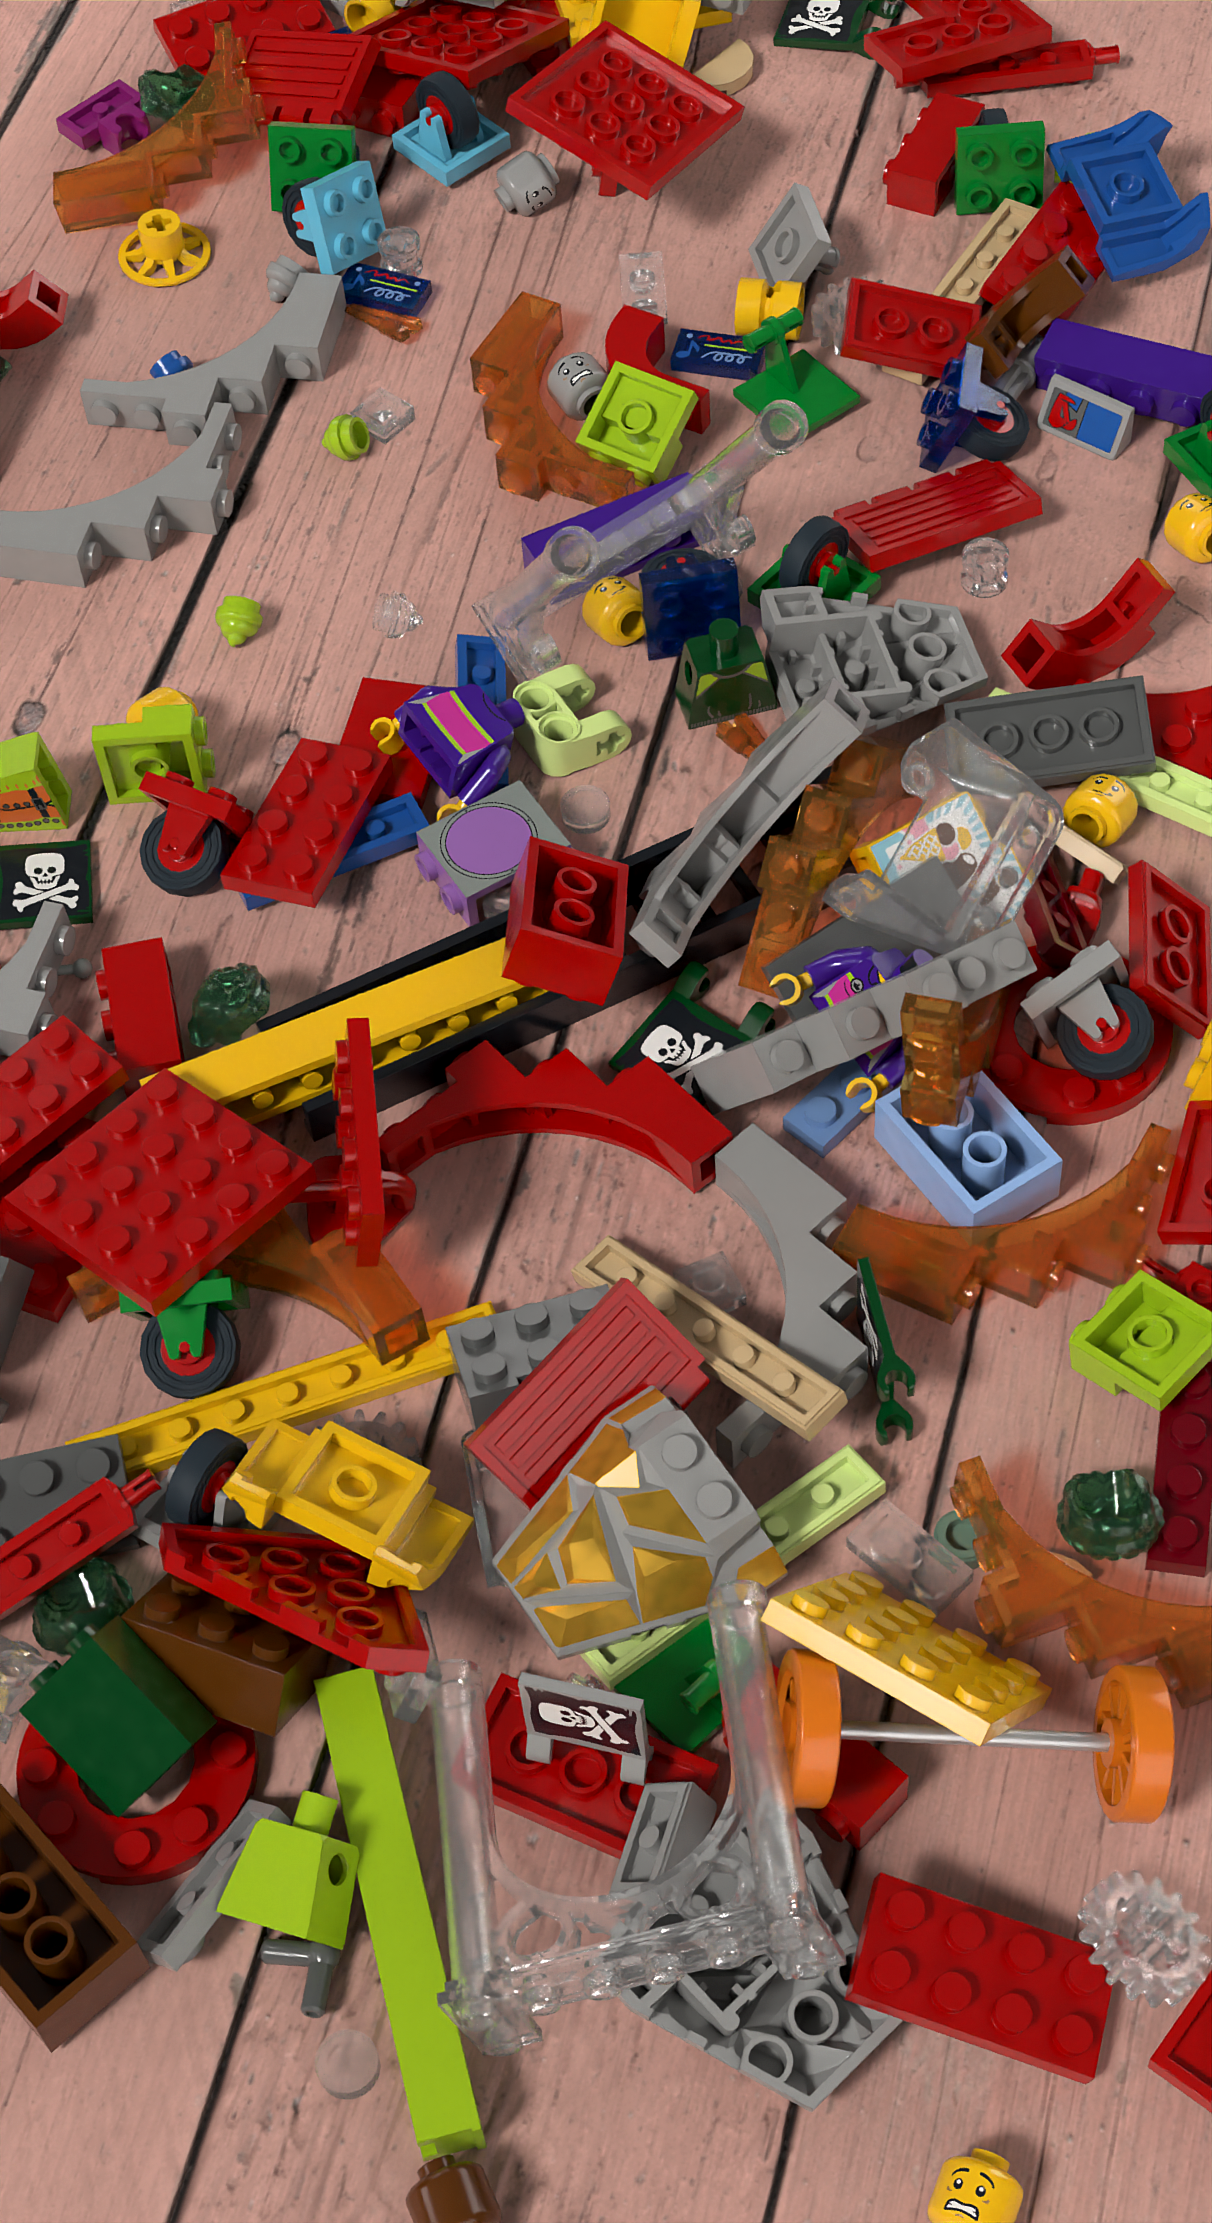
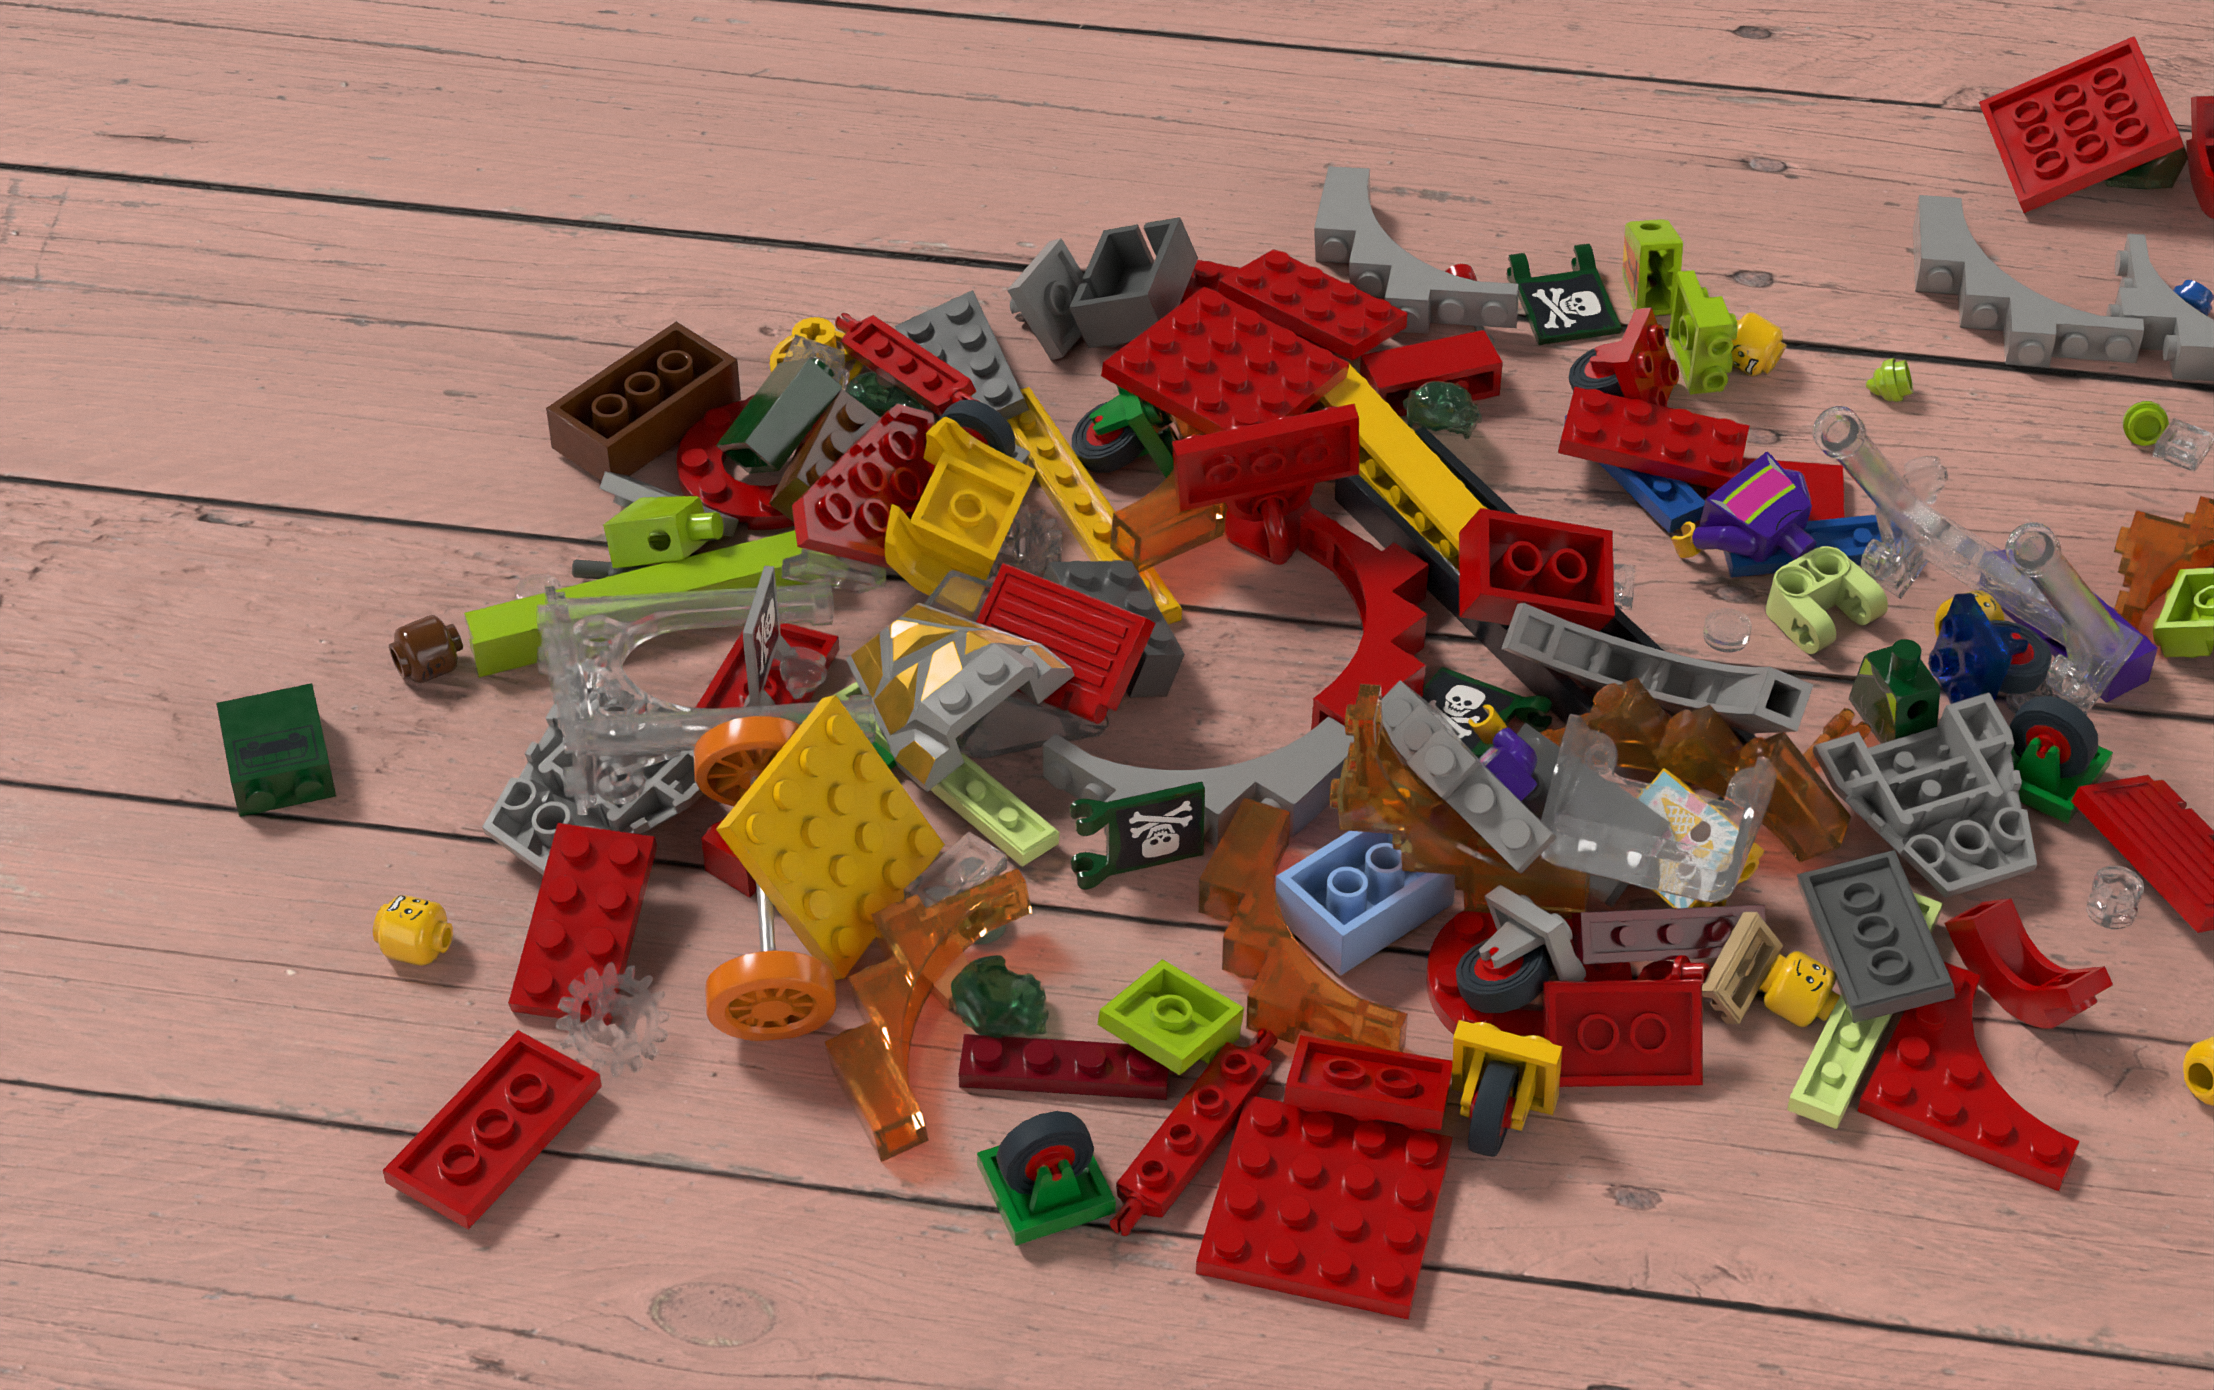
camera: 80 degrees right, 10 degrees down
(482, 846) = (1664, 565): panel -> none
(714, 1281) = (1213, 744): clear plate -> none
(731, 1349) = (1145, 727): tan tile -> none

